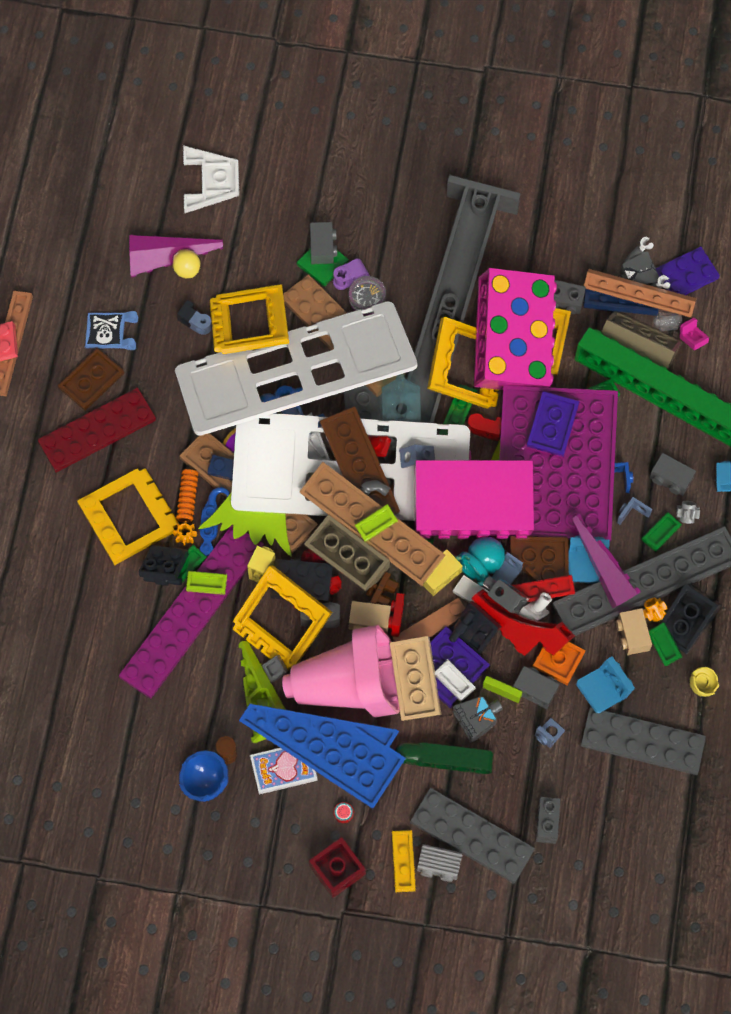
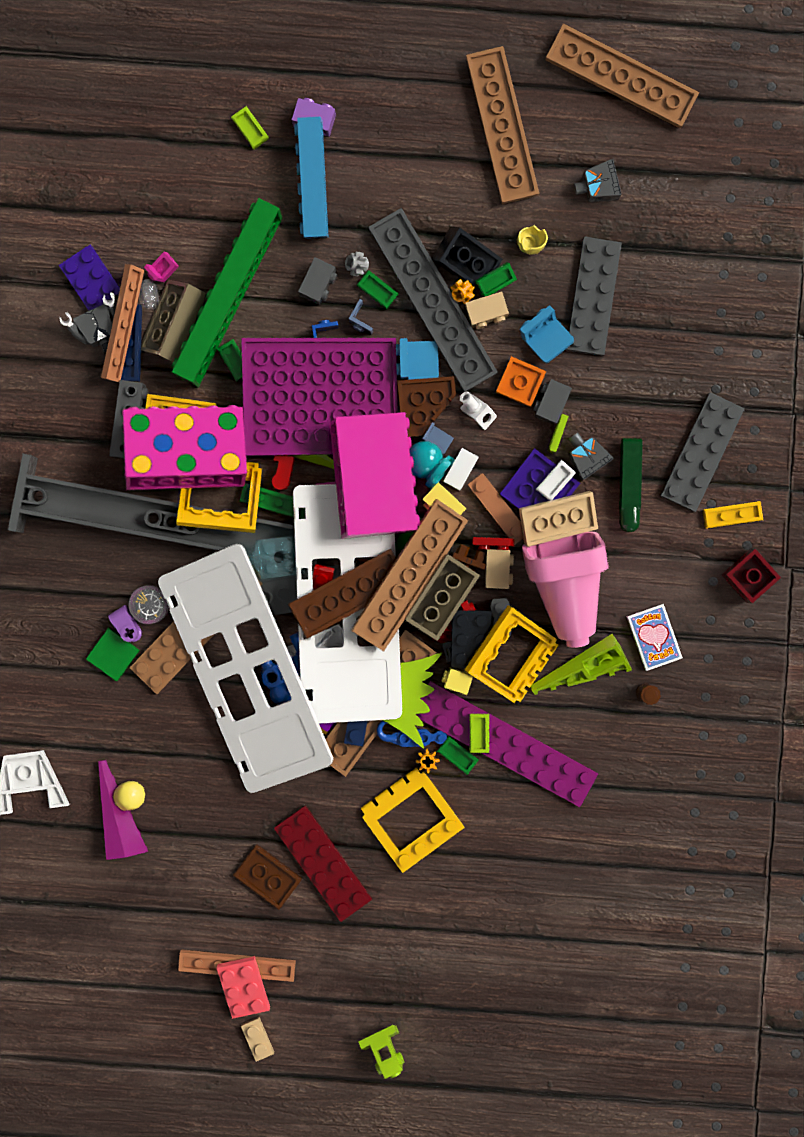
camera: 95 degrees left, 20 degrees up
(107, 330) = (211, 867): flag -> none
(163, 565) = (463, 777): black plate -> none
(187, 495) = (386, 763): orange piece -> none
(193, 319) = (195, 774): leg -> none
(203, 776) = (677, 713): blue cylinder -> none
(275, 668) = (558, 656): dark grey tile -> none
(276, 320) = (186, 695): yellow hinge -> none
(322, 243) = (94, 657): dark grey brick -> none
(341, 750) = (639, 582): blue wing -> none
(343, 812) = (692, 575): tile -> none
(374, 485) = (370, 576): dark grey arm -> none
(376, 523) = (411, 570): lime tile -> none
(417, 452) = (332, 533): sand blue bracket -> none
(439, 863) = (733, 480): light grey brick -> none
(474, 628) = (501, 465): black plate -> none
(511, 600) = (468, 436): dark grey torso -> none
(522, 631) = (499, 418): red arch -> none
(544, 737) = (602, 387): sand blue bracket -> none
(548, 820) = (683, 381): dark grey brick -> none
(553, 424) = (284, 401): dark purple plate -> none
(553, 586) = (455, 409): red tile -> none
(611, 576) = (445, 330): magenta wedge -> none

